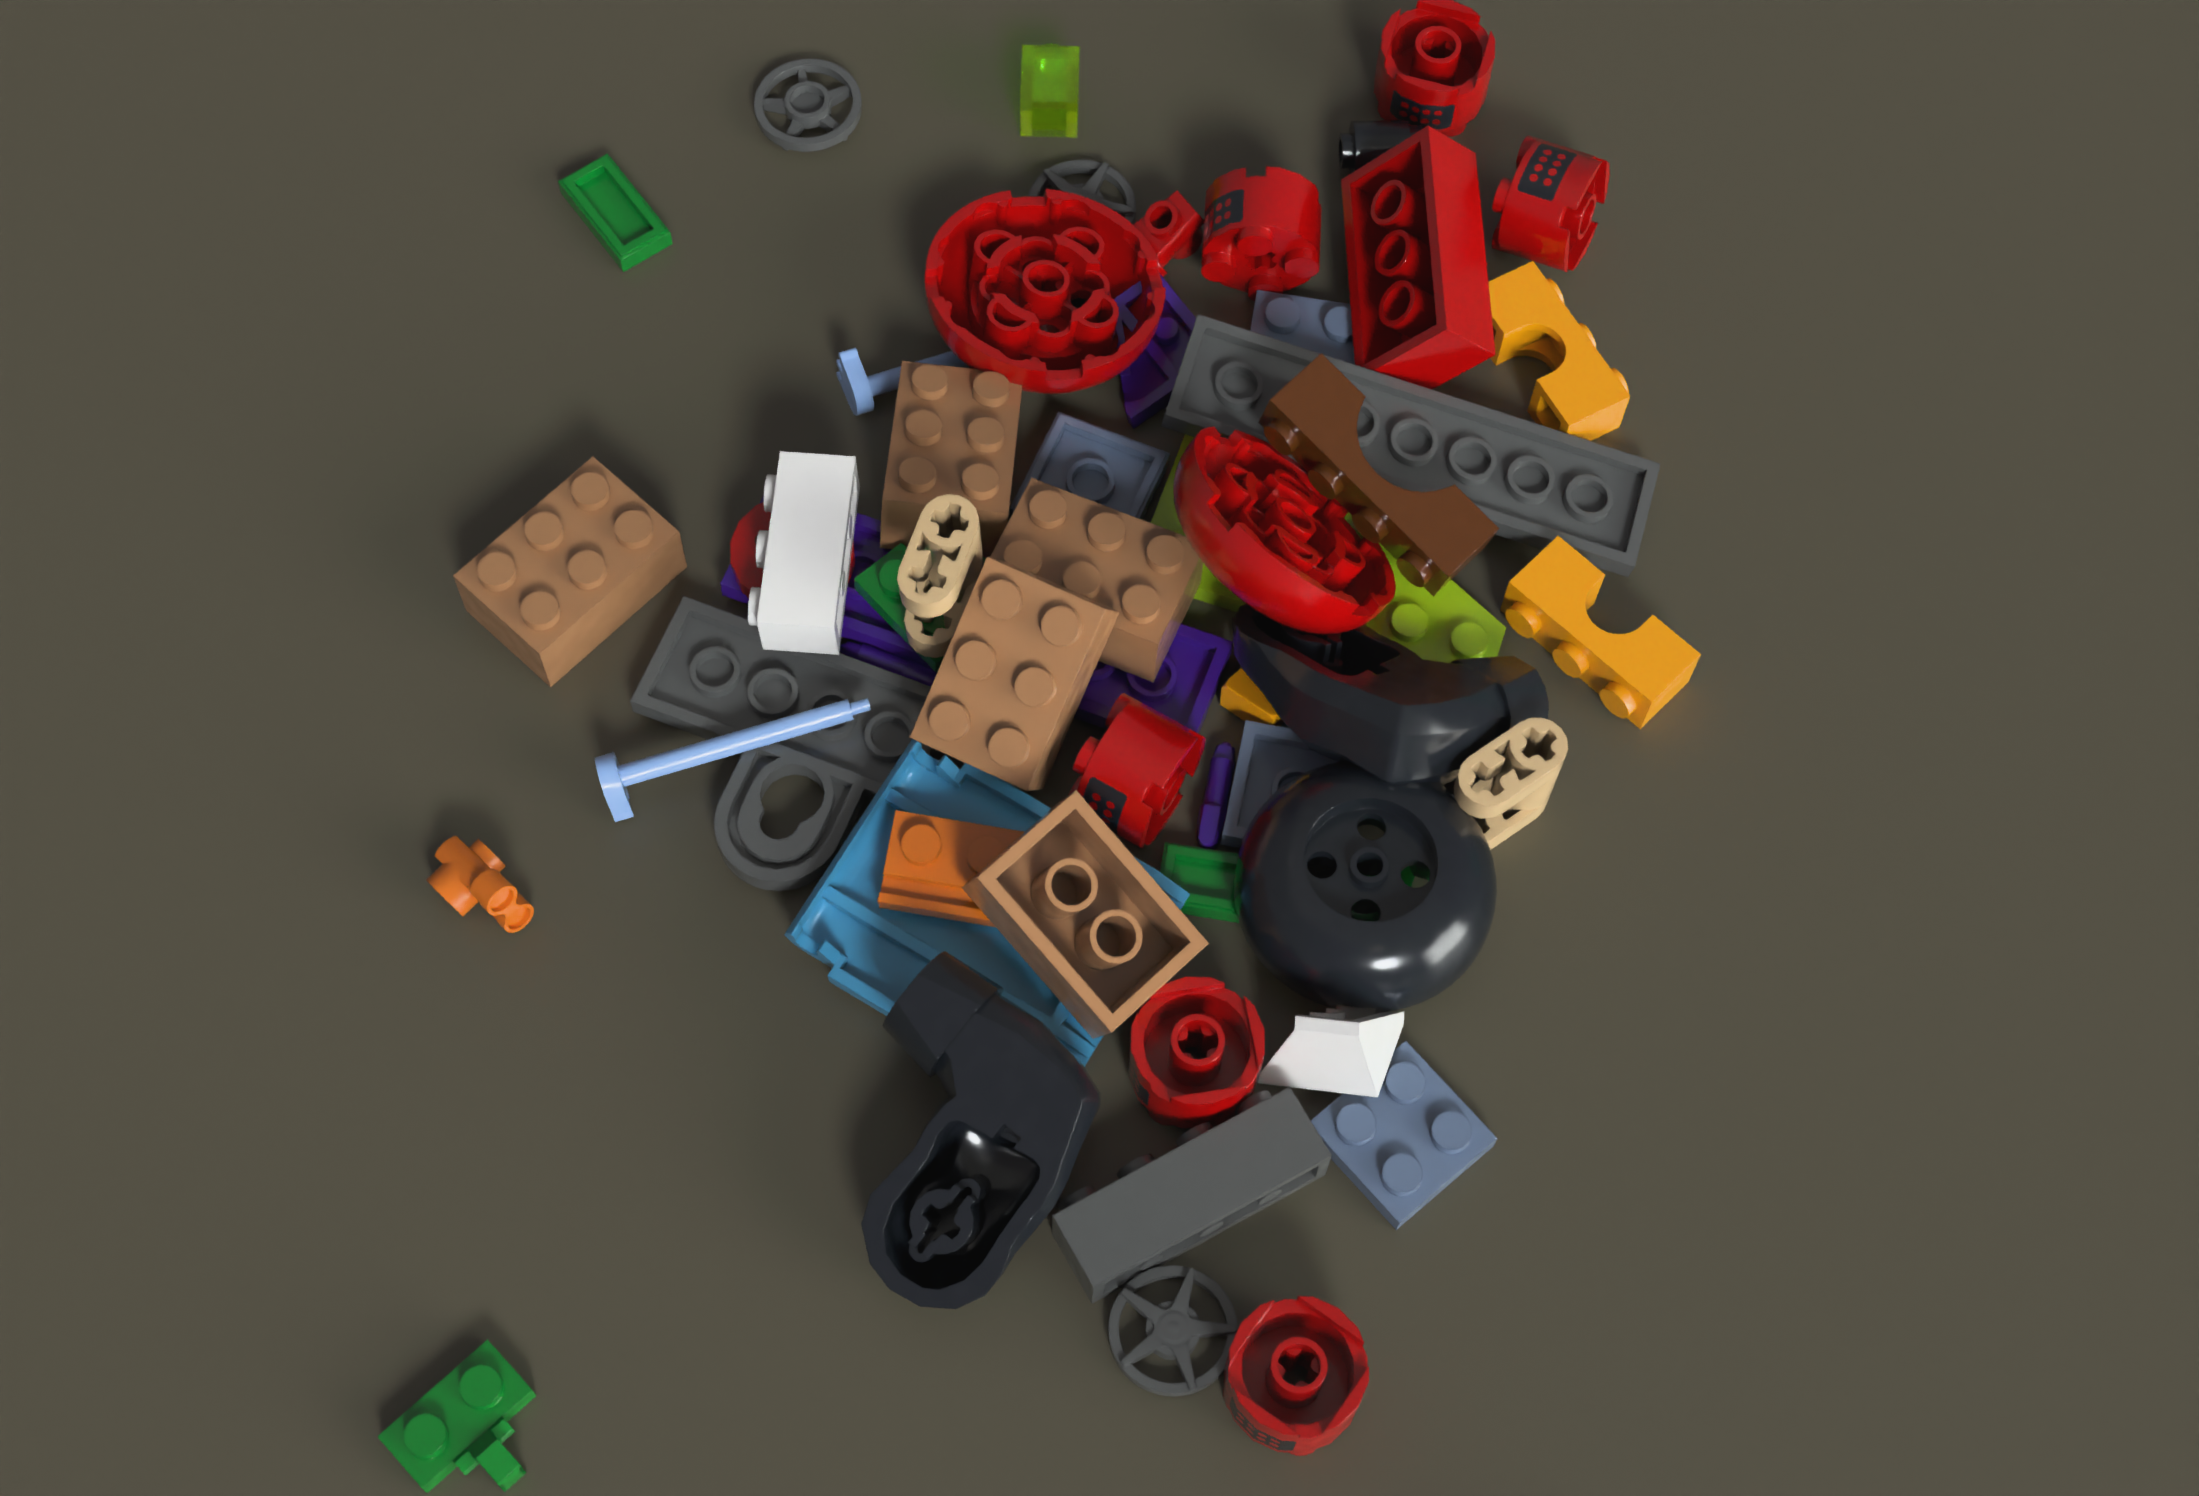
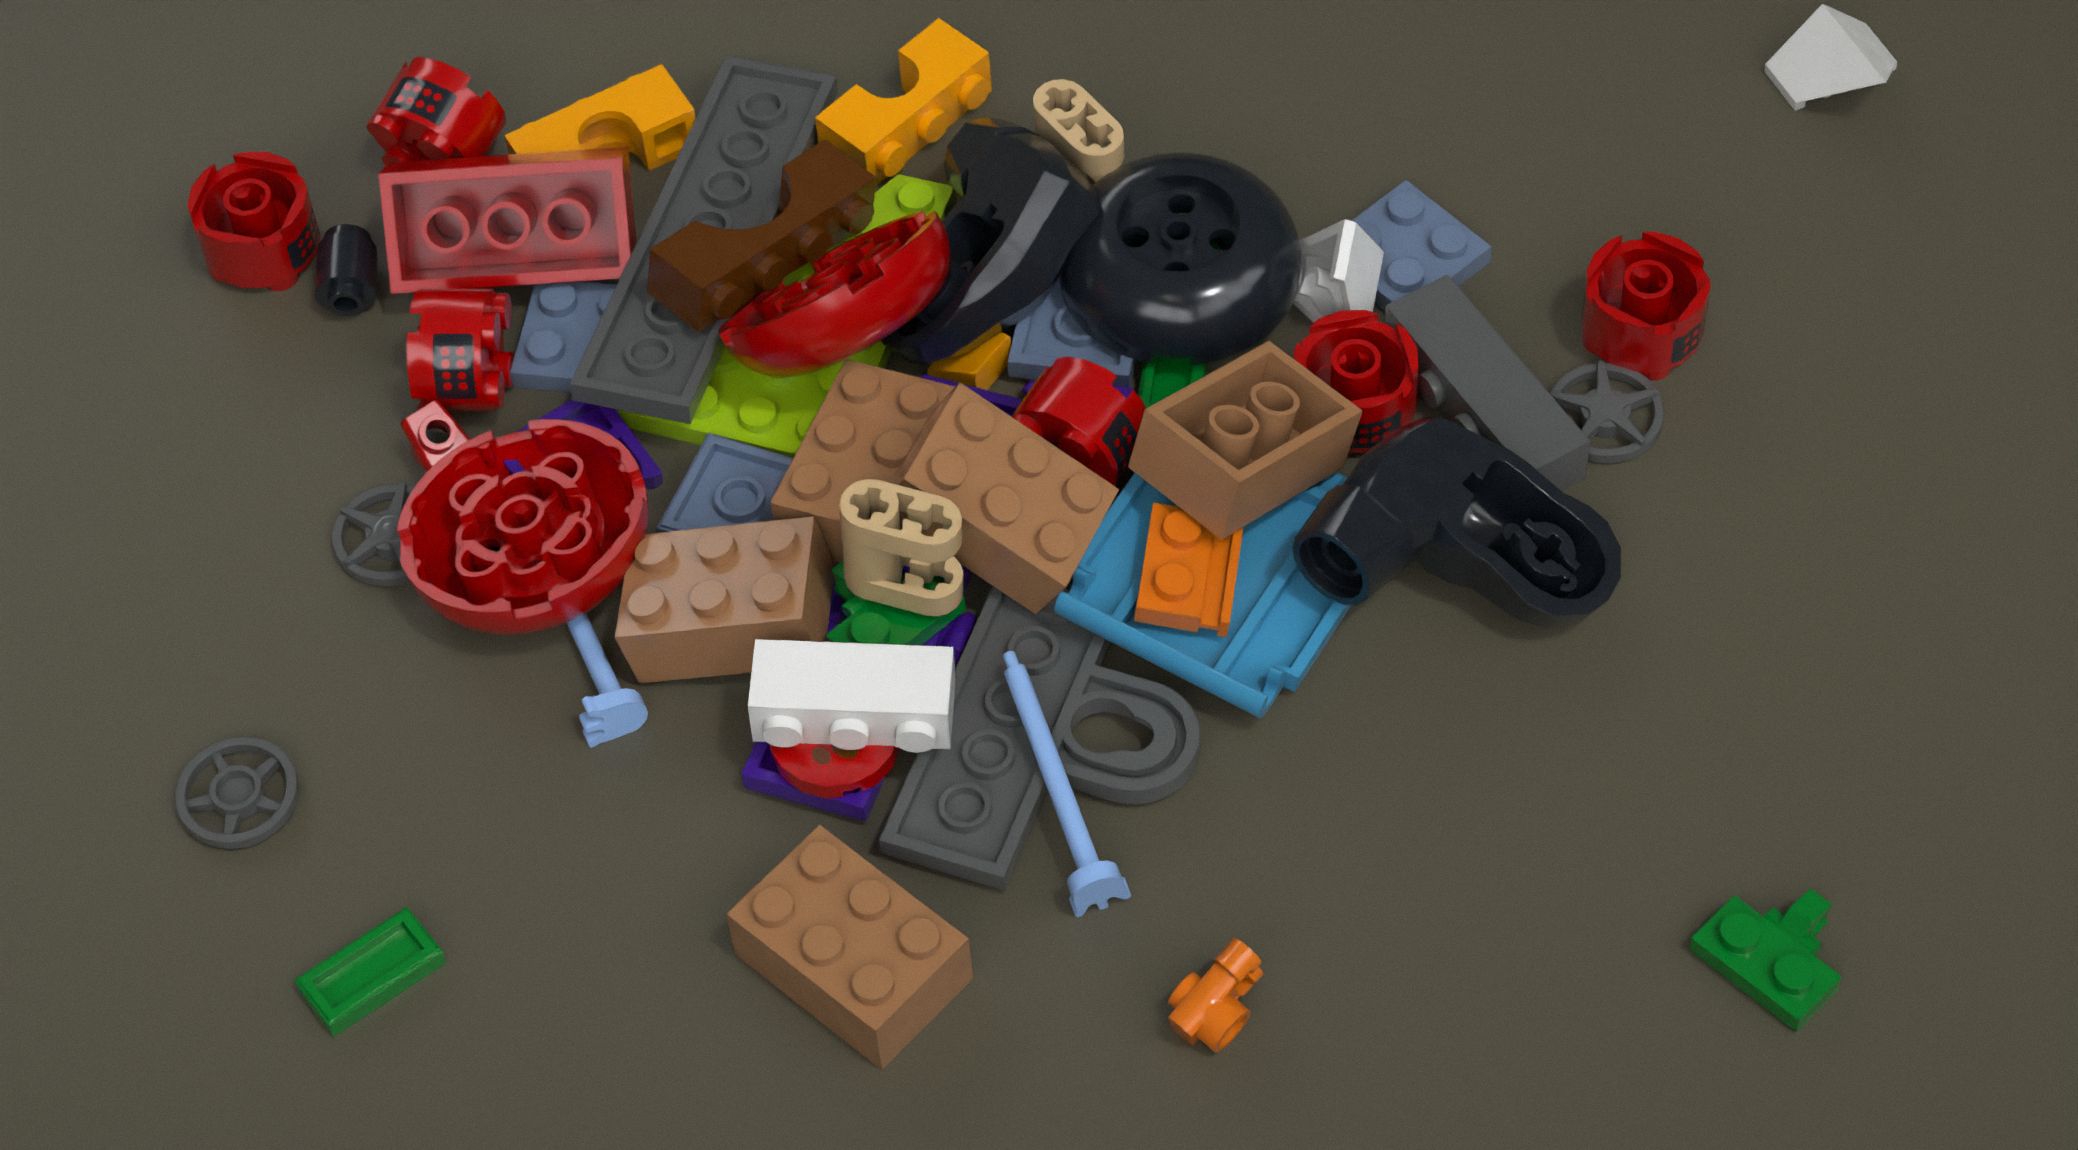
camera: 85 degrees left, 10 degrees down
(1049, 90) = (245, 556): clear neon green brick -> none

